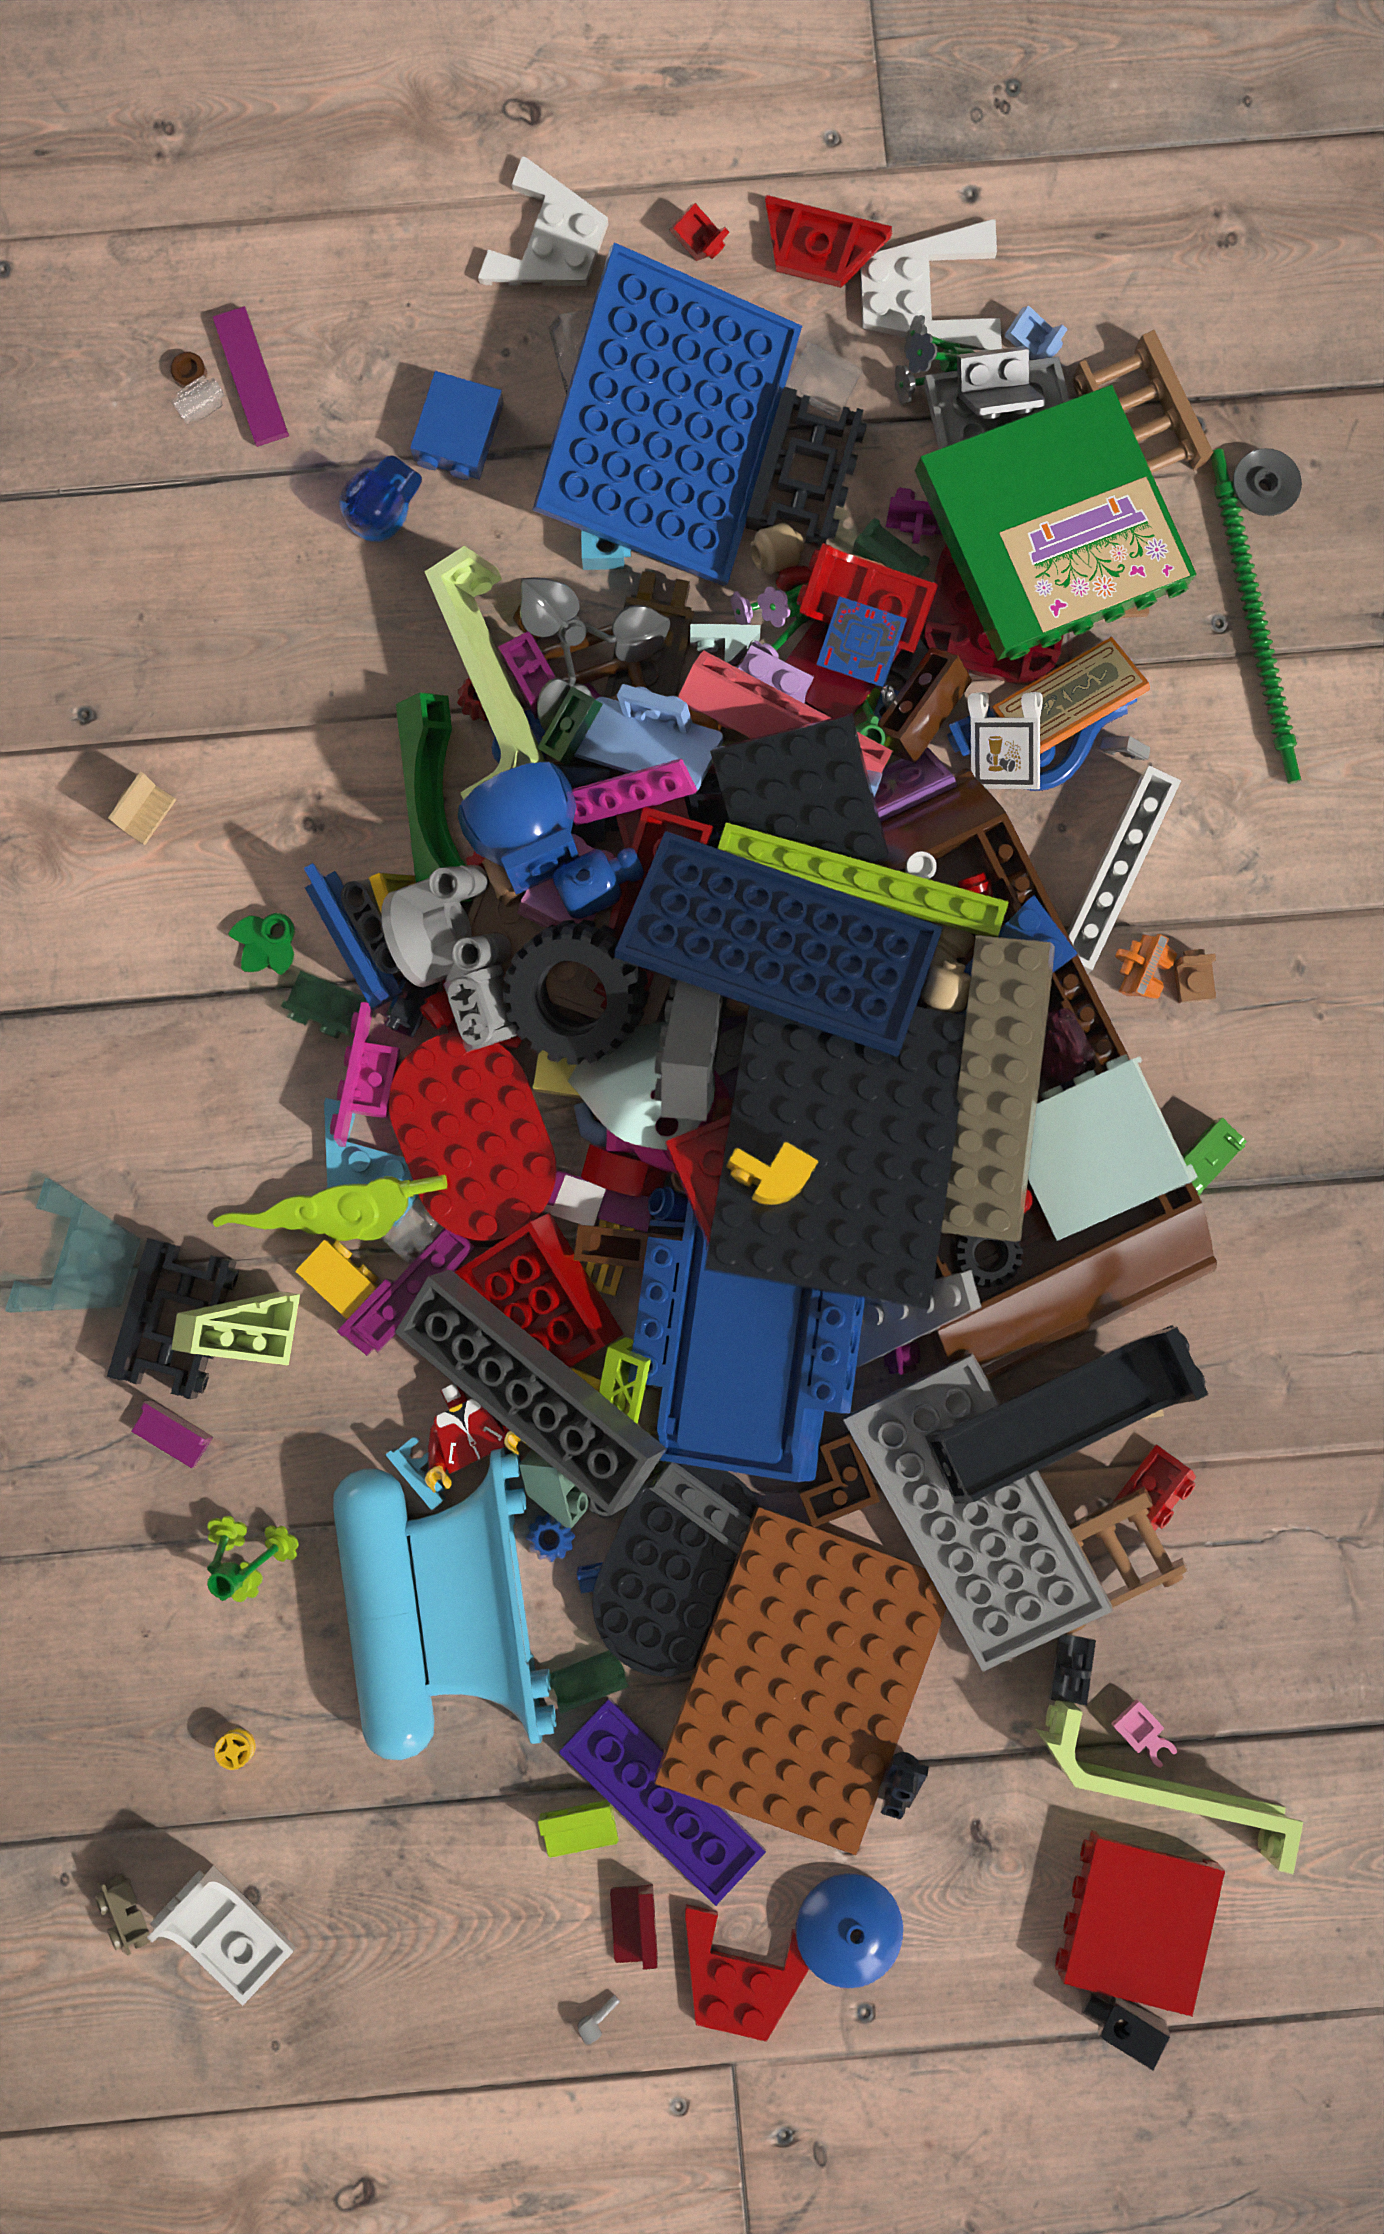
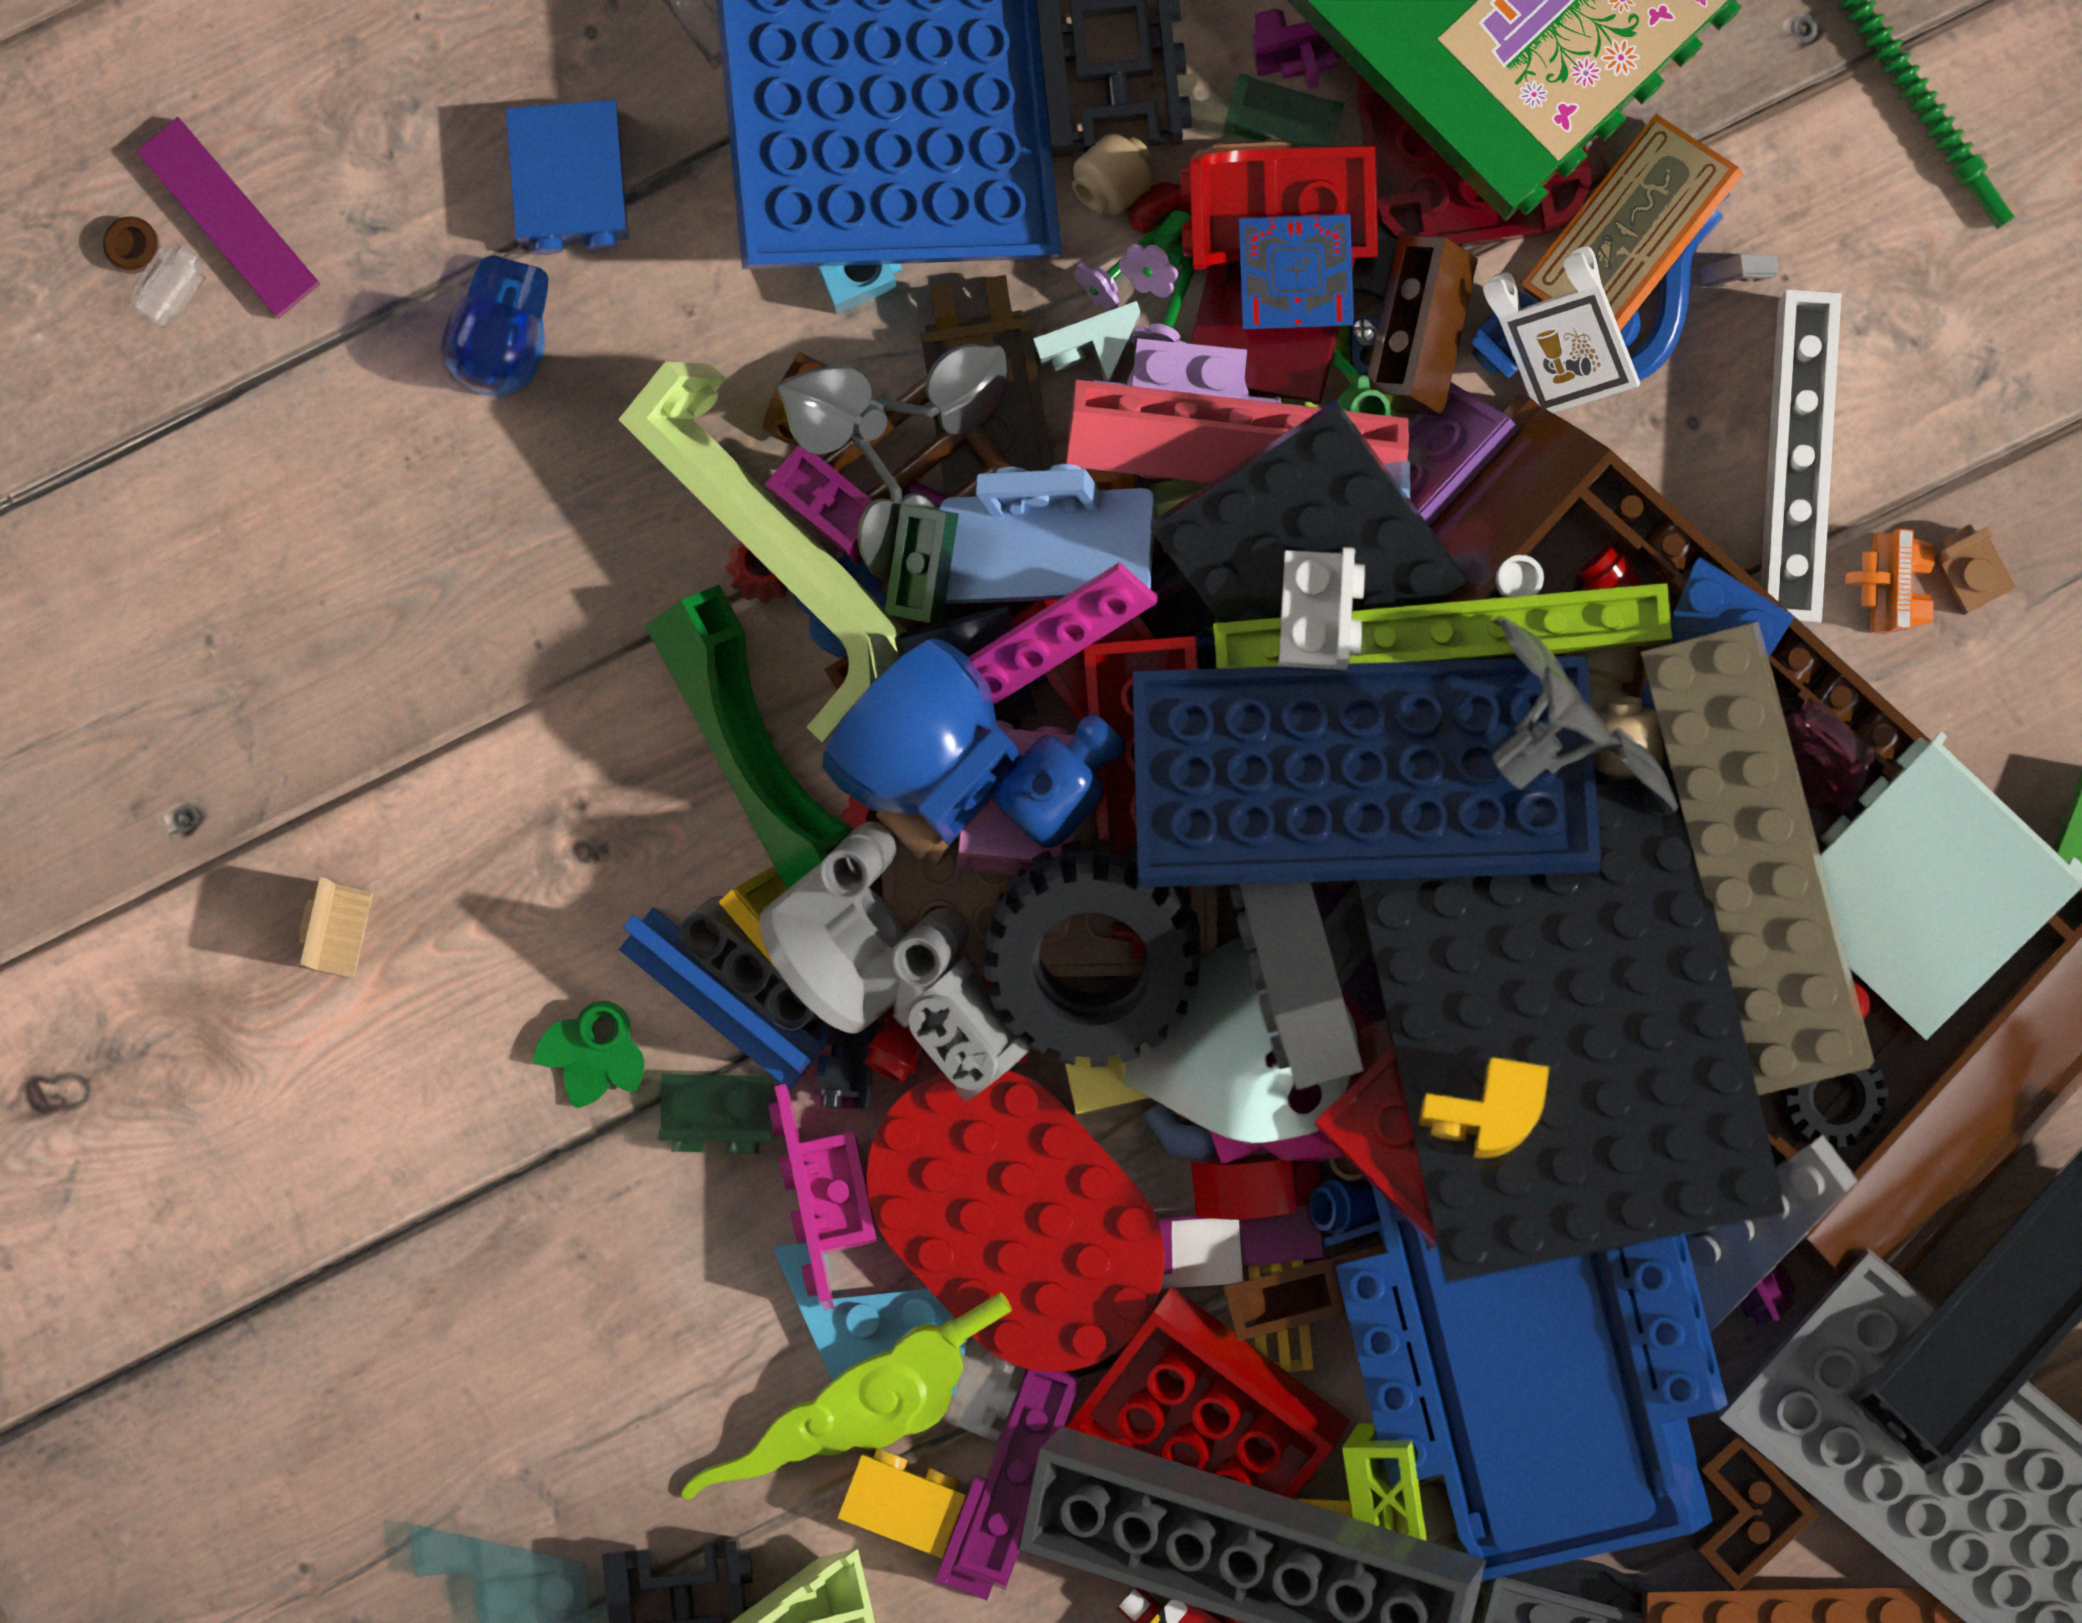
camera: 20 degrees left, 0 degrees up
(790, 836) = (1319, 608): none -> white bracket
(889, 963) = (1535, 746): none -> dark grey plant

